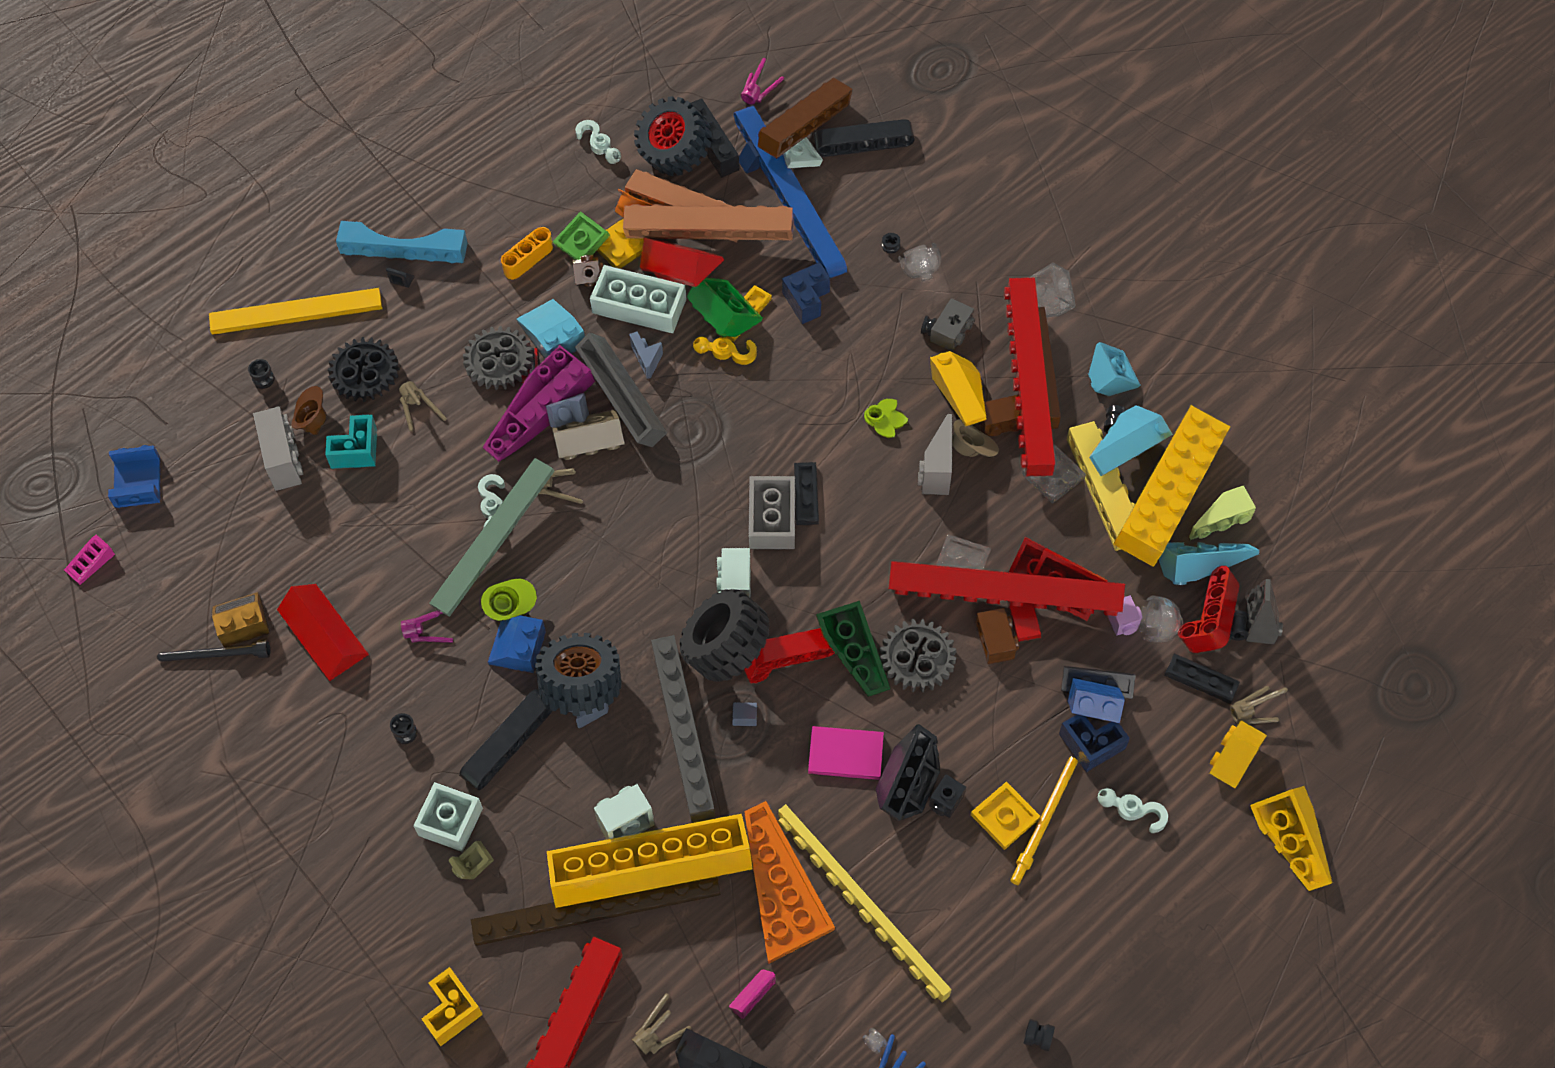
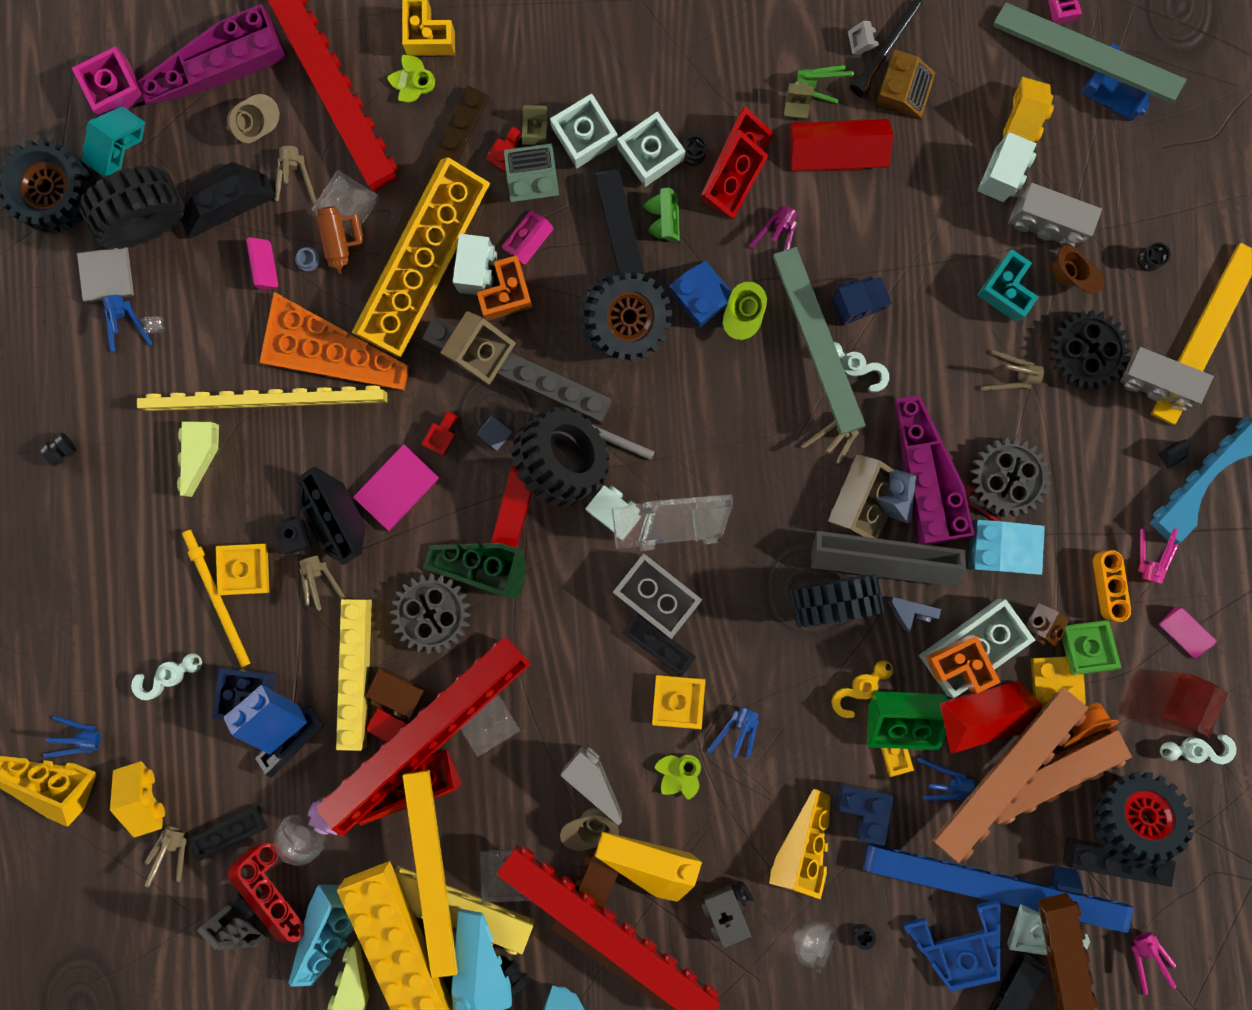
camera: 130 degrees right, 25 degrees up
(127, 508) = (1090, 53): none -> sand green tile
(204, 514) = (1030, 109): none -> yellow brick
(220, 673) = (862, 38): none -> light grey tile
(260, 502) = (1007, 167): none -> light aqua brick
(284, 689) = (811, 75): none -> bright green plant
(309, 683) = (798, 100): none -> olive bracket
(353, 304) = (1165, 379): none -> light grey brick
(392, 692) = (737, 164): none -> red slope
(426, 755) = (651, 149): none -> light aqua brick
(440, 531) = (860, 299): none -> dark blue brick
(465, 719) = (667, 206): none -> bright green tile
(495, 236) = (1154, 570): none -> dark pink plant
(503, 997) = (408, 79): none -> lime plate
(511, 873) = (496, 154): none -> red plate
(514, 830) = (531, 172): none -> sand green slope
(523, 195) = (1187, 632): none -> dark pink slope
(568, 805) = (528, 237): none -> dark pink slope
(570, 163) = (1195, 704): none -> clear red slope
(622, 772) = (510, 296): none -> orange brick
(649, 967) = (348, 197): none -> clear plate
(654, 288) = (967, 658): none -> orange brick
(676, 614) = (626, 444): none -> light grey bar
(677, 391) = (837, 601): none -> black wheel
(682, 947) = (334, 238): none -> dark orange piece
(688, 754) = (478, 347): none -> dark tan slope
(695, 512) = (671, 521): none -> clear windscreen
(719, 960) = (307, 259): none -> sand blue plate
(743, 252) = (959, 788): none -> blue plant
(780, 748) = (439, 437): none -> red plate
(811, 401) = (748, 722): none -> blue plant
(835, 451) = (678, 702): none -> yellow plate
(848, 176) = (966, 958): none -> blue wing
(879, 306) = (800, 859): none -> yellow wedge
(944, 920) = (198, 448): none -> yellowish green slope
(960, 765) = (311, 569): none -> dark tan plant
(1008, 674) = (353, 674): none -> light yellow brick
(1093, 508) = (430, 874): none -> yellow tile
(1234, 830) = (87, 739): none -> blue plant

